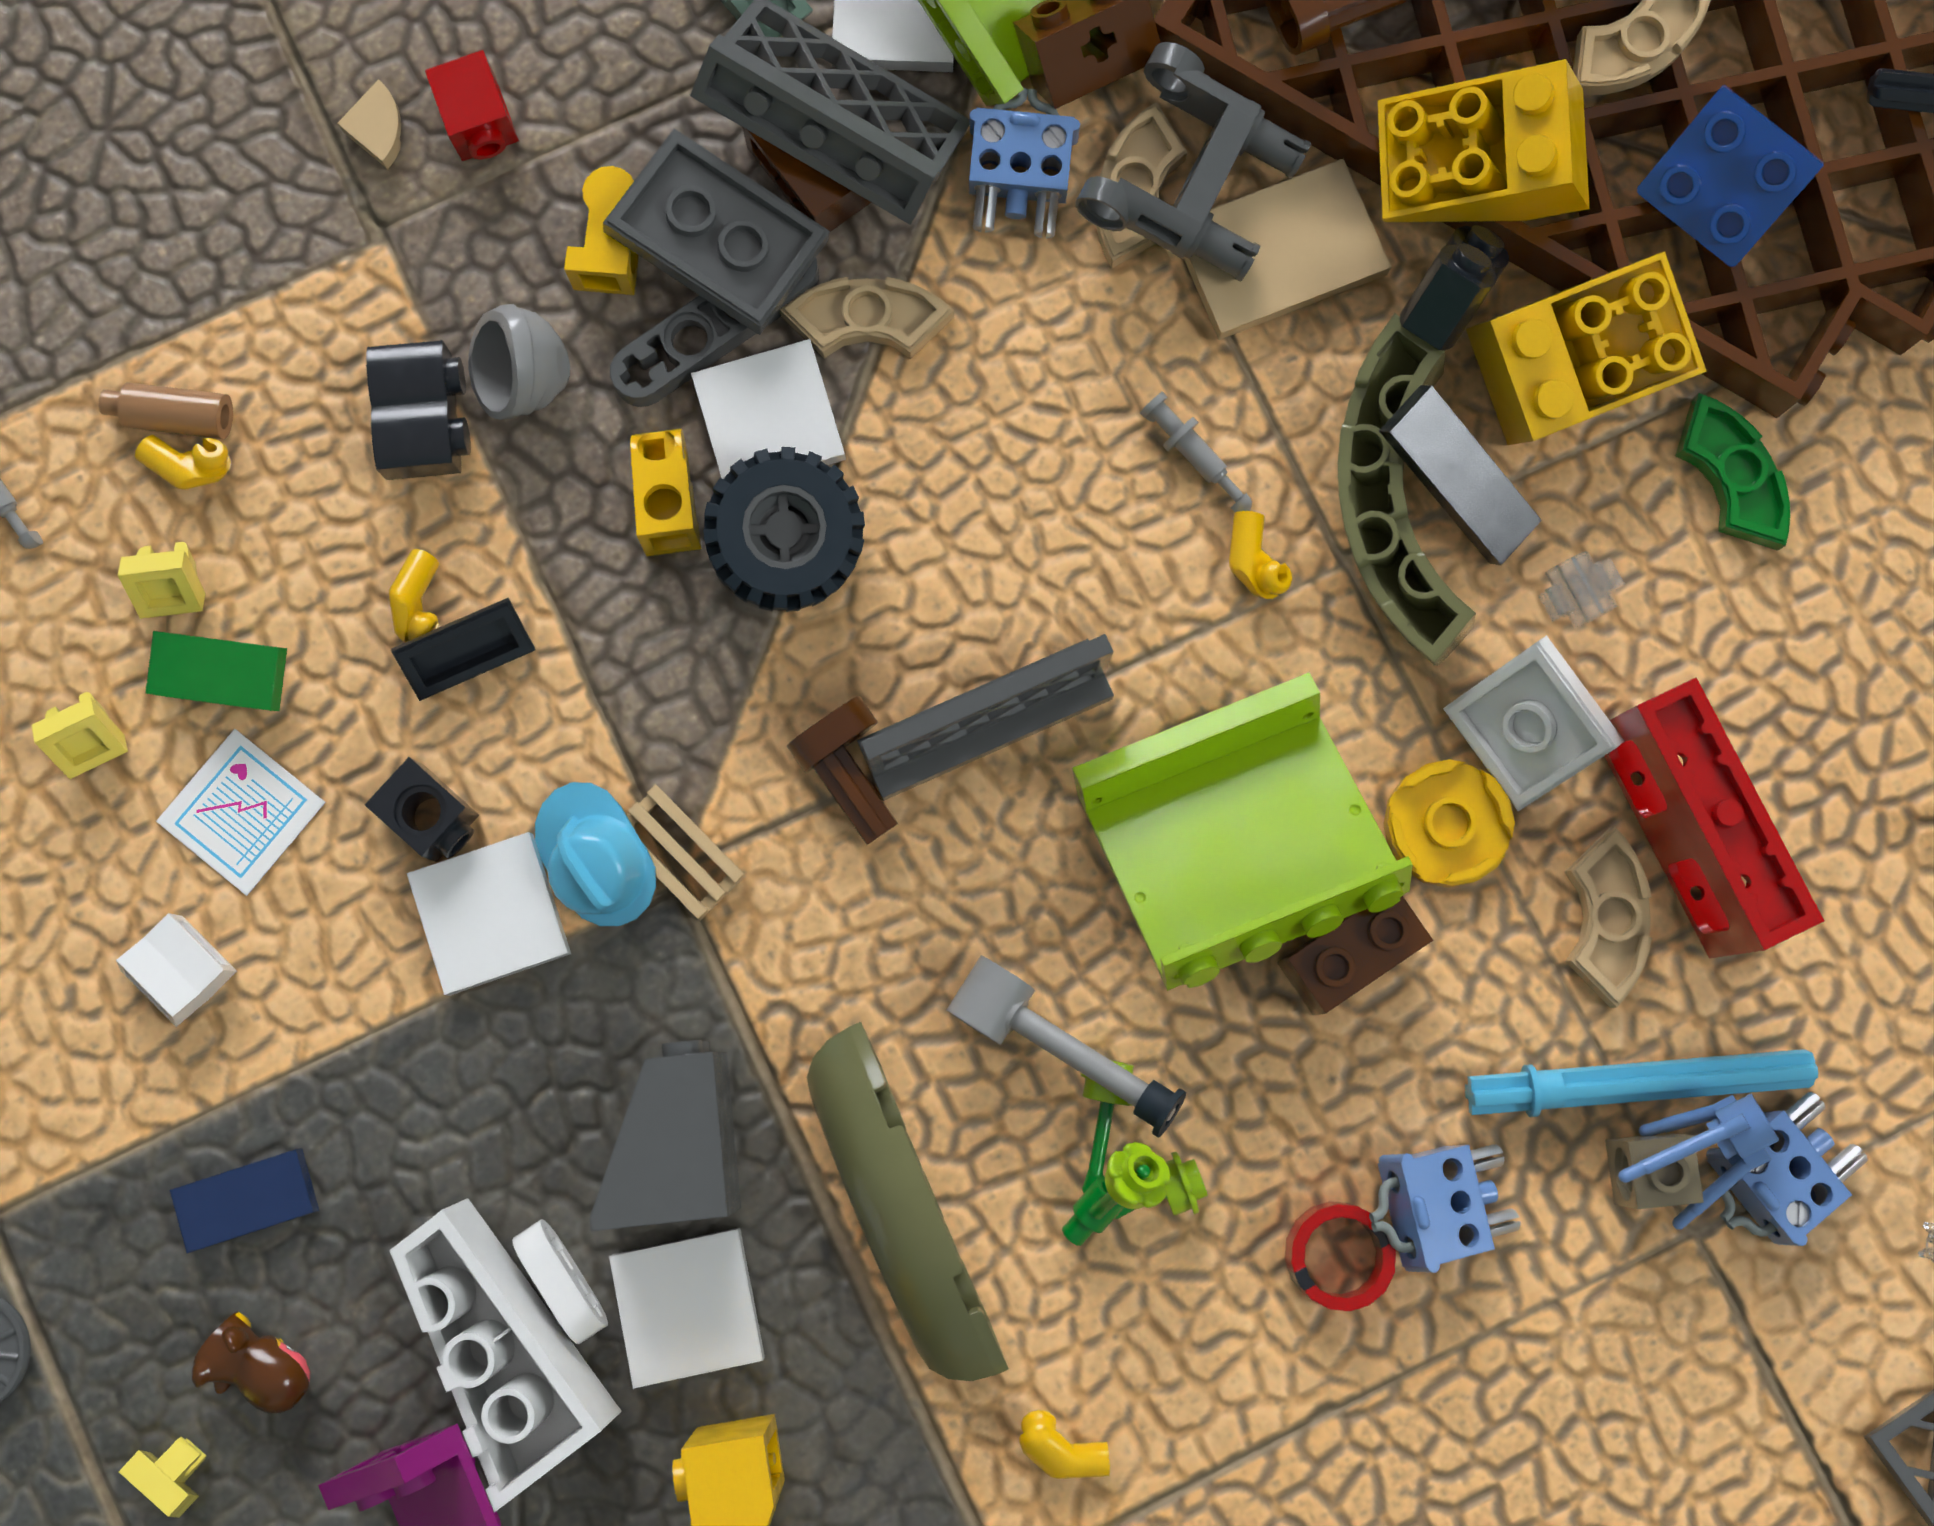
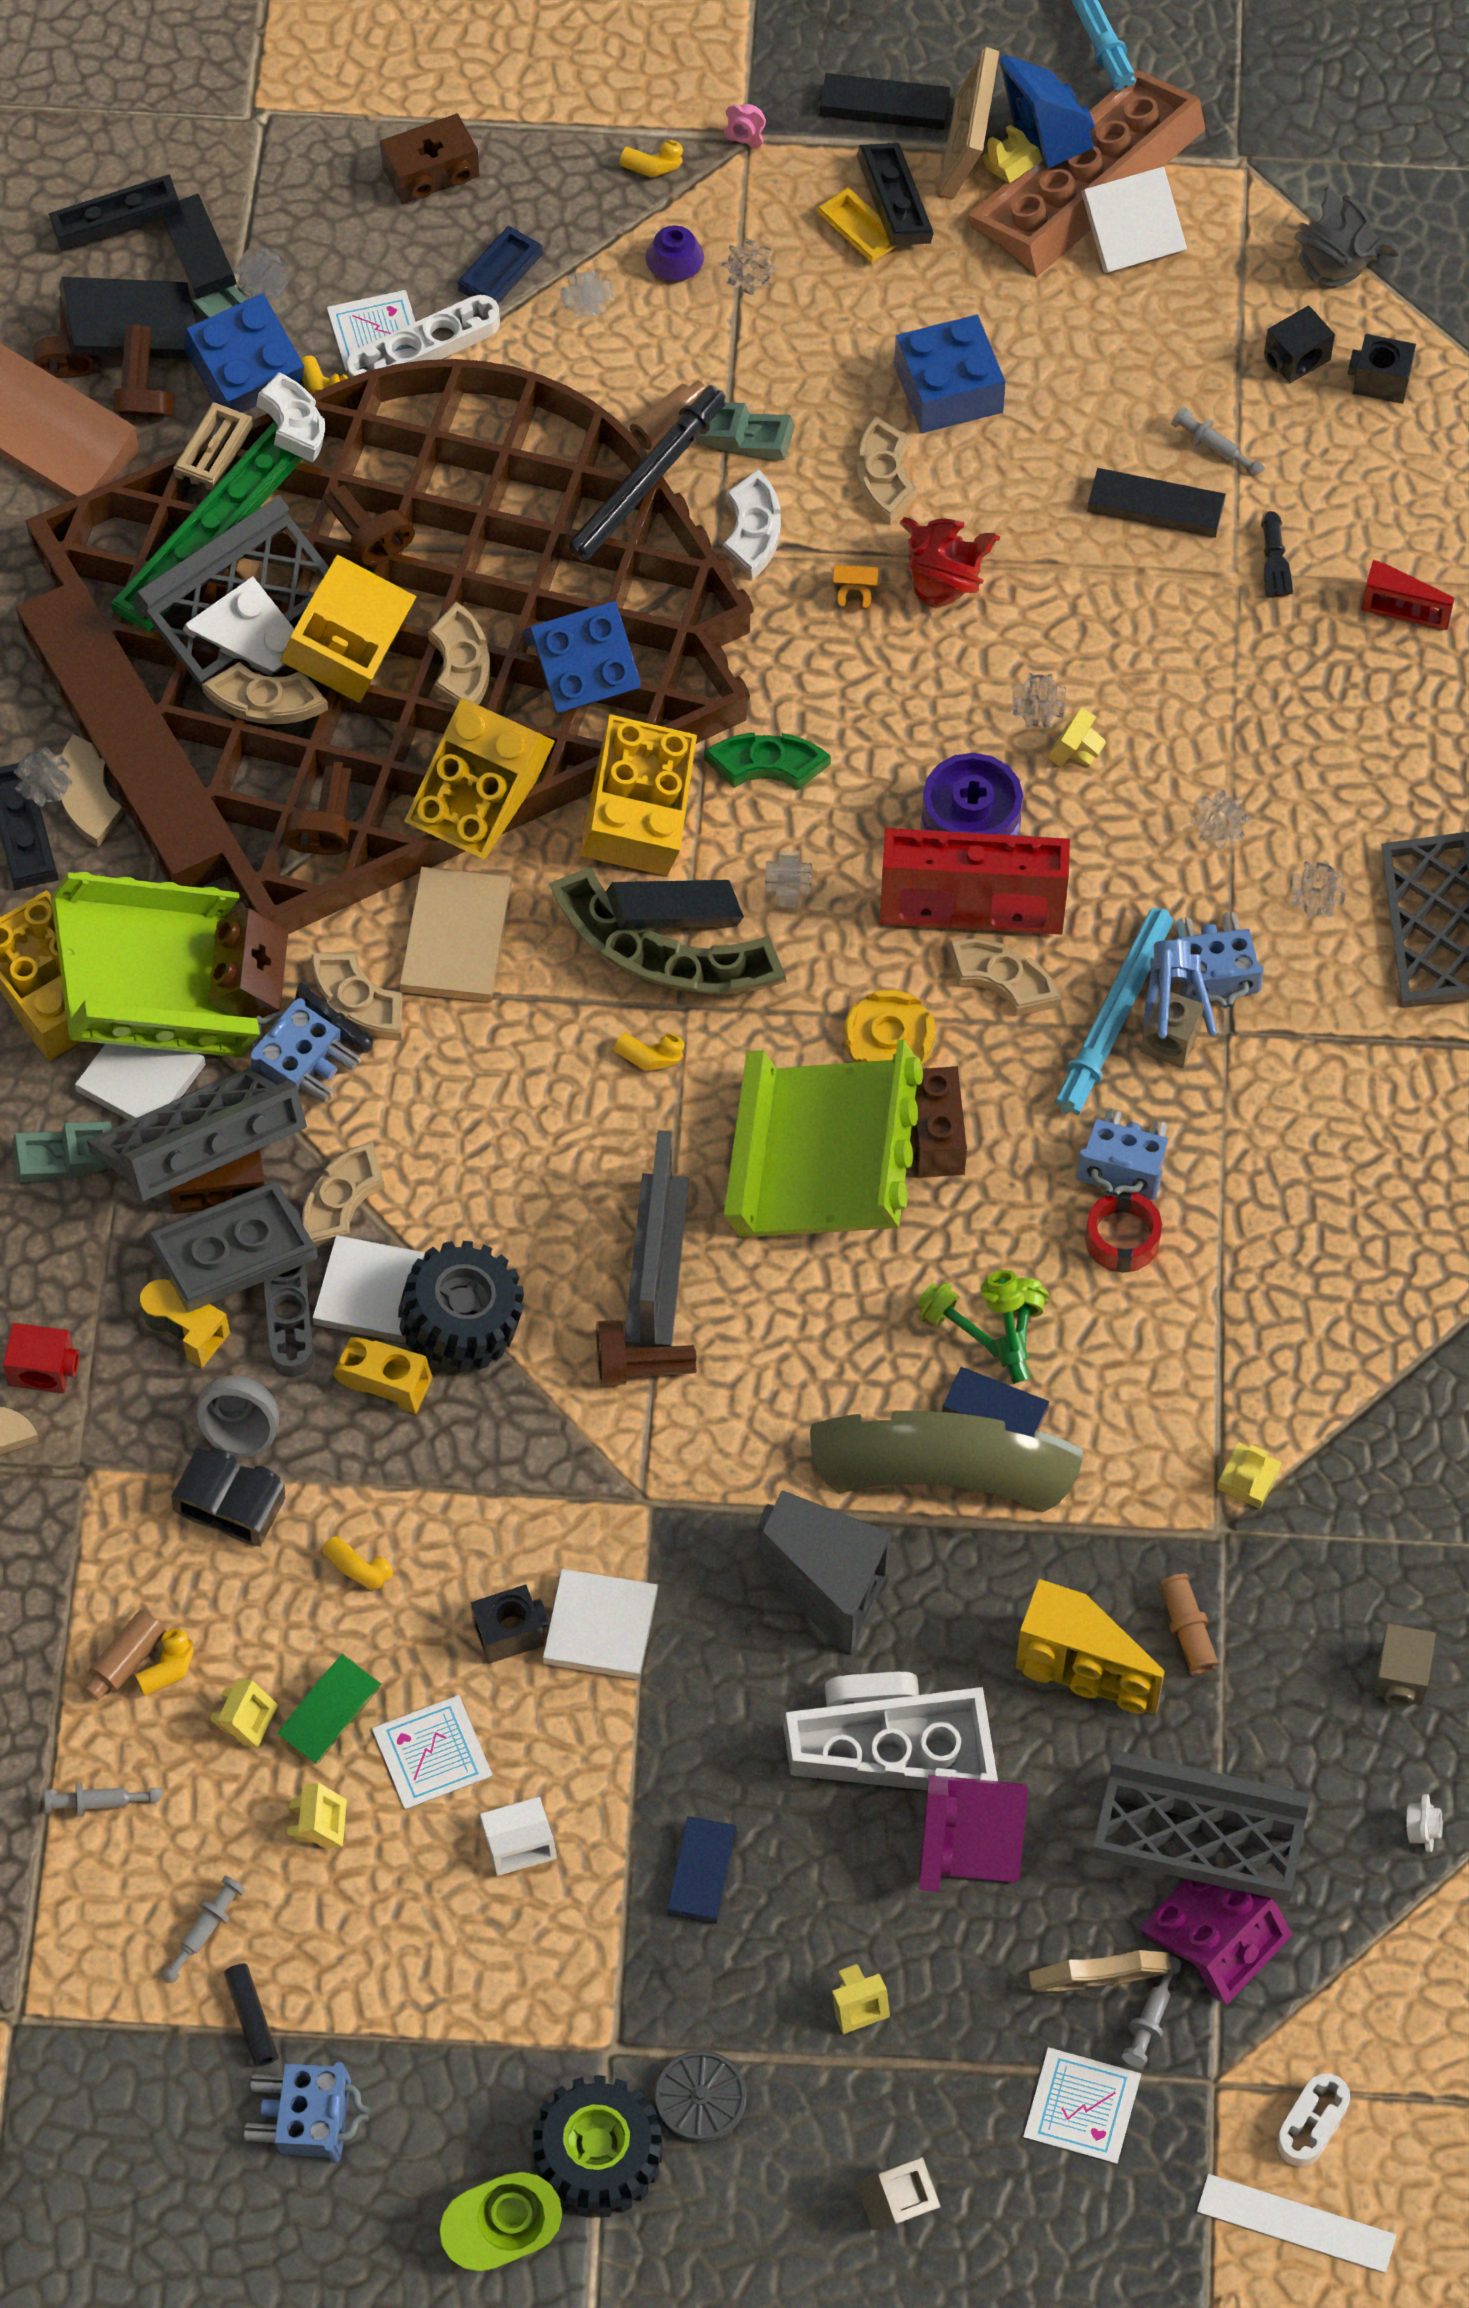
camera: 60 degrees left, 20 degrees down
(260, 1367) = (817, 1905): reddish brown animal -> none
(463, 649) = (412, 1546): black tile -> none
(594, 855) = (601, 1538): medium azure piece -> none
(641, 812) = (627, 1472): tan tile -> none
(686, 1307) = (933, 1630): white tile -> none
(997, 1004) = (846, 1344): light grey piece -> none
(1018, 1224) = (992, 1399): none -> dark blue tile
(1056, 1455) = (1152, 1457): yellow arm -> none
(1087, 158) = (359, 1040): none -> black piece
(1194, 449) = (556, 1050): light grey piece -> none
(1236, 128) = (367, 917): dark grey connector -> none
(1455, 286) = (553, 841): black brick -> none
(1533, 724) = (856, 947): white tile -> none
(1817, 756) = (972, 796): none -> dark purple wheel

